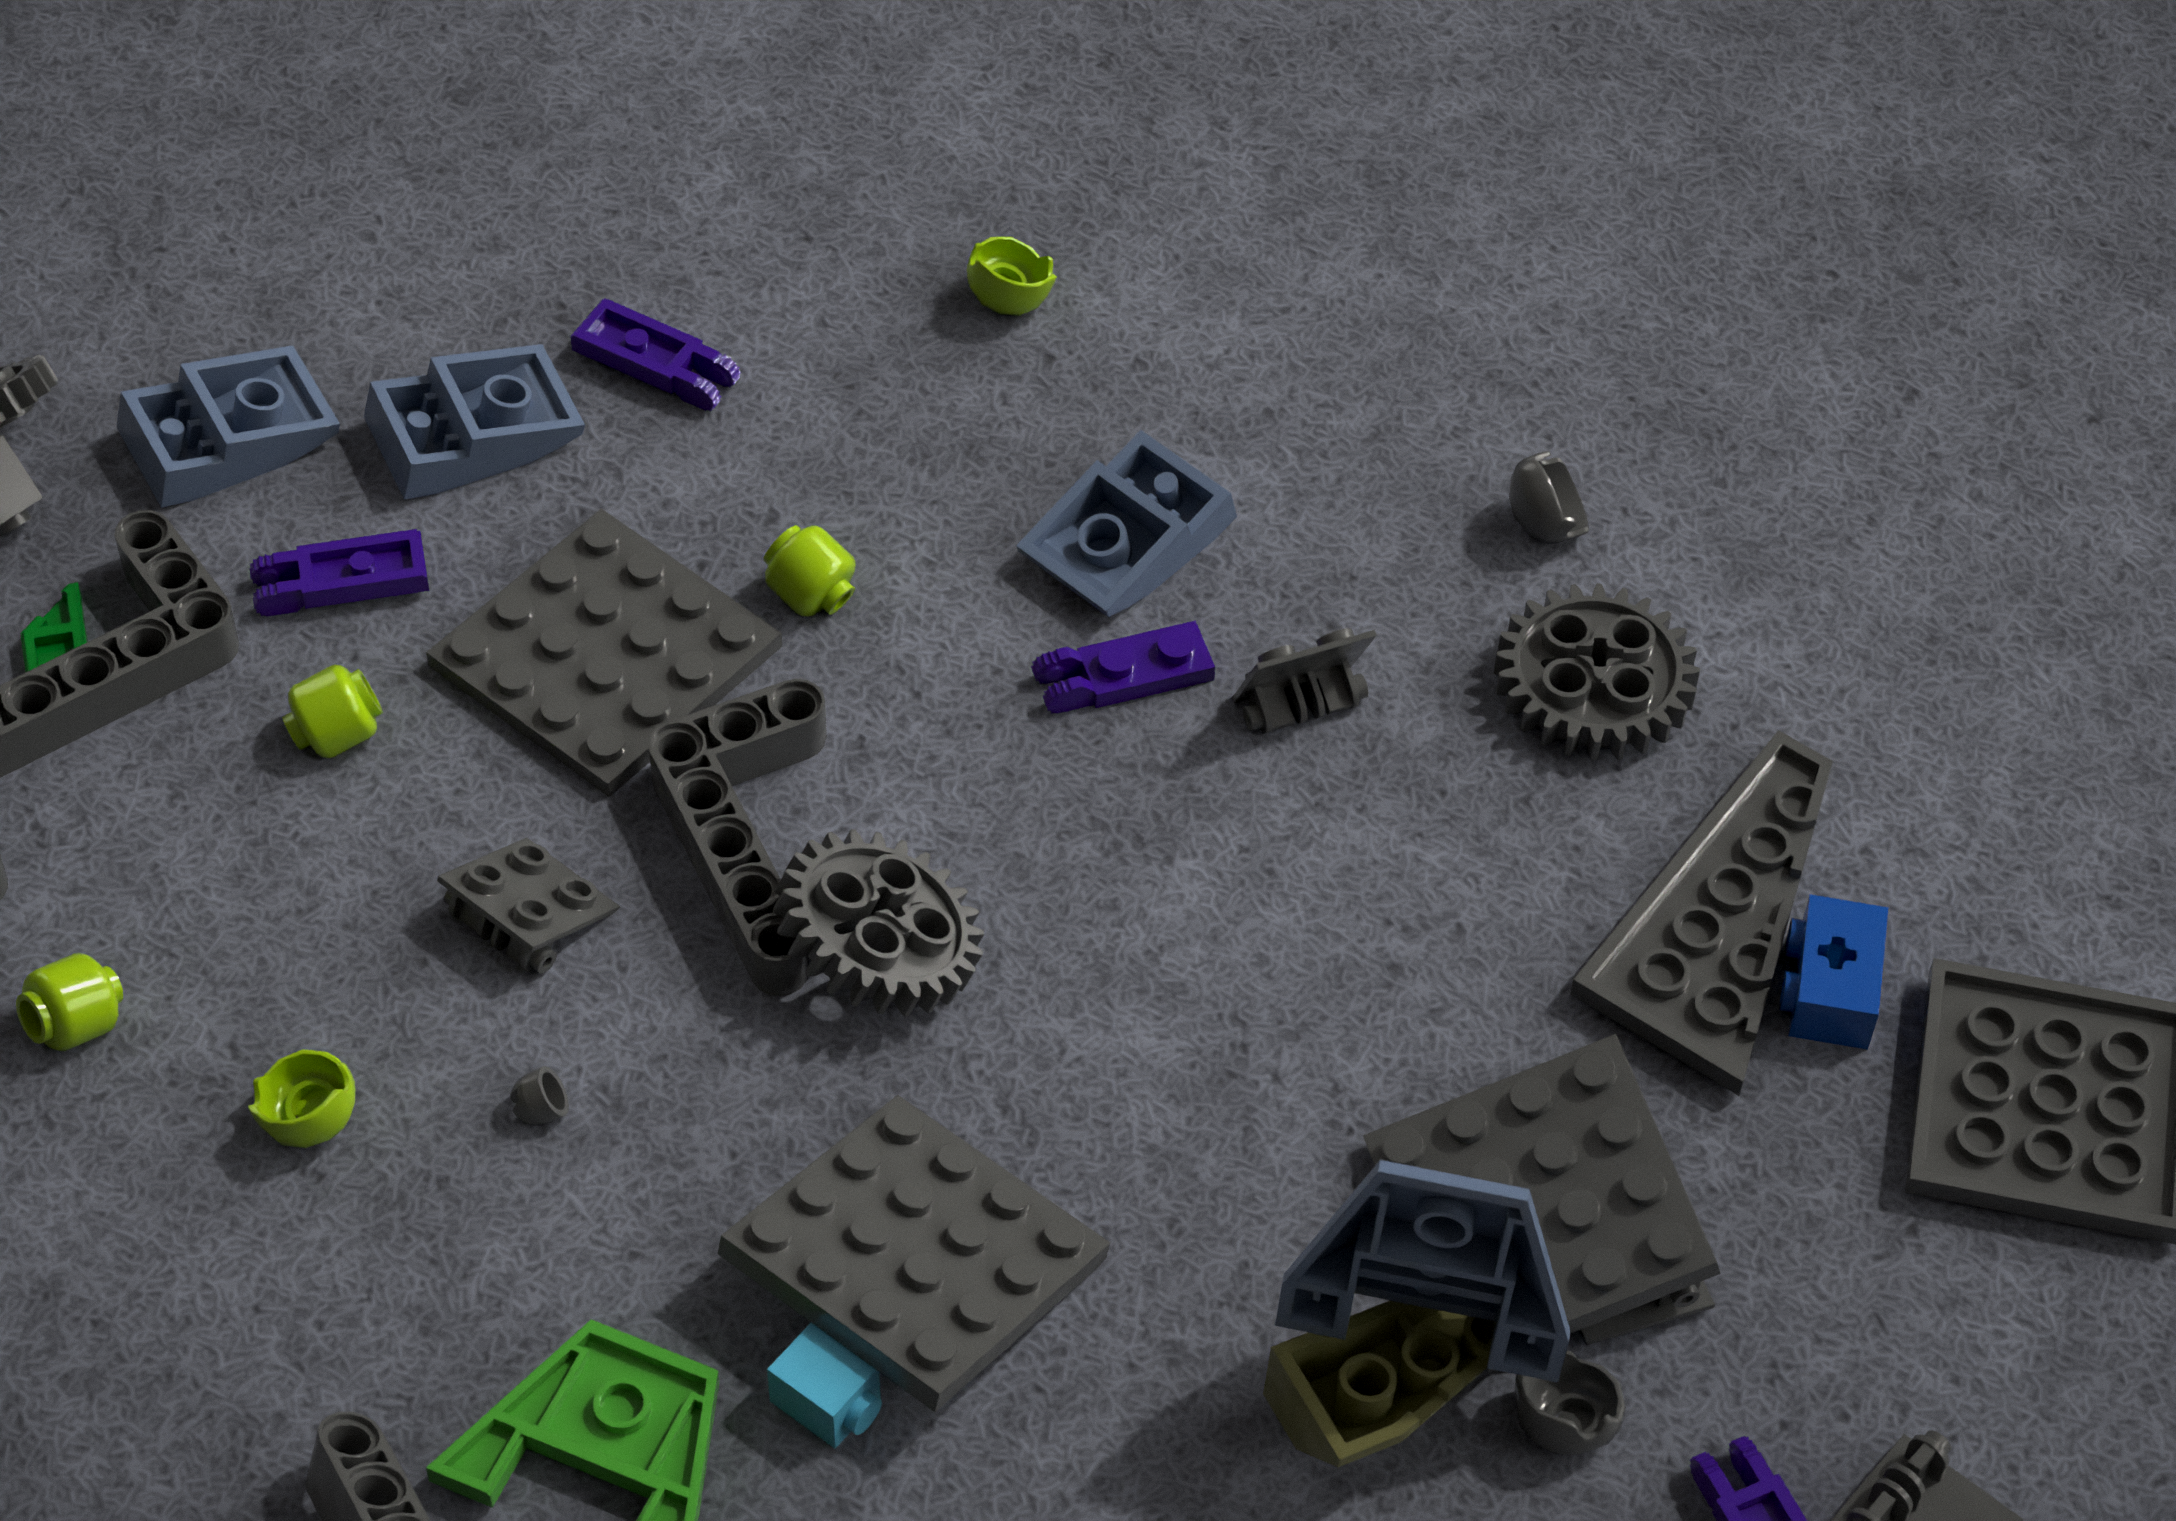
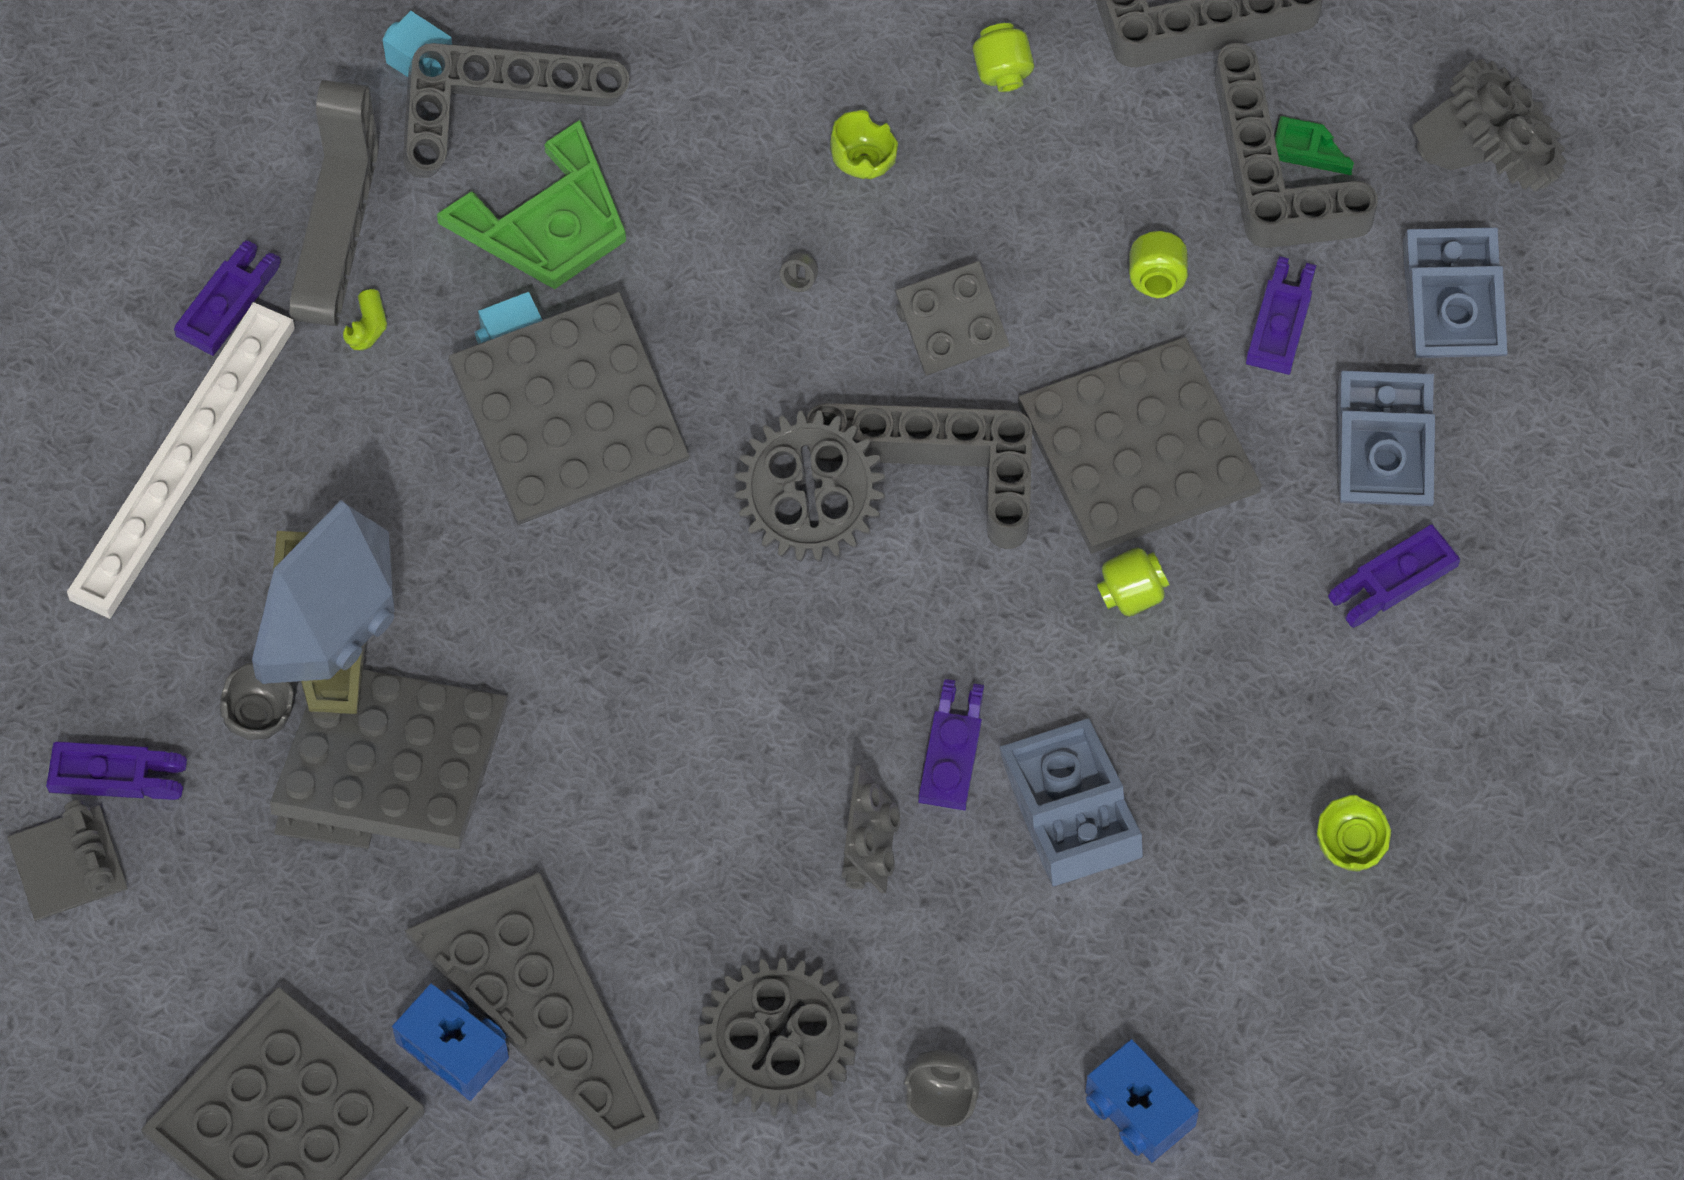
camera: 120 degrees right, 10 degrees up
(1439, 338) = (1135, 1077): none -> blue brick

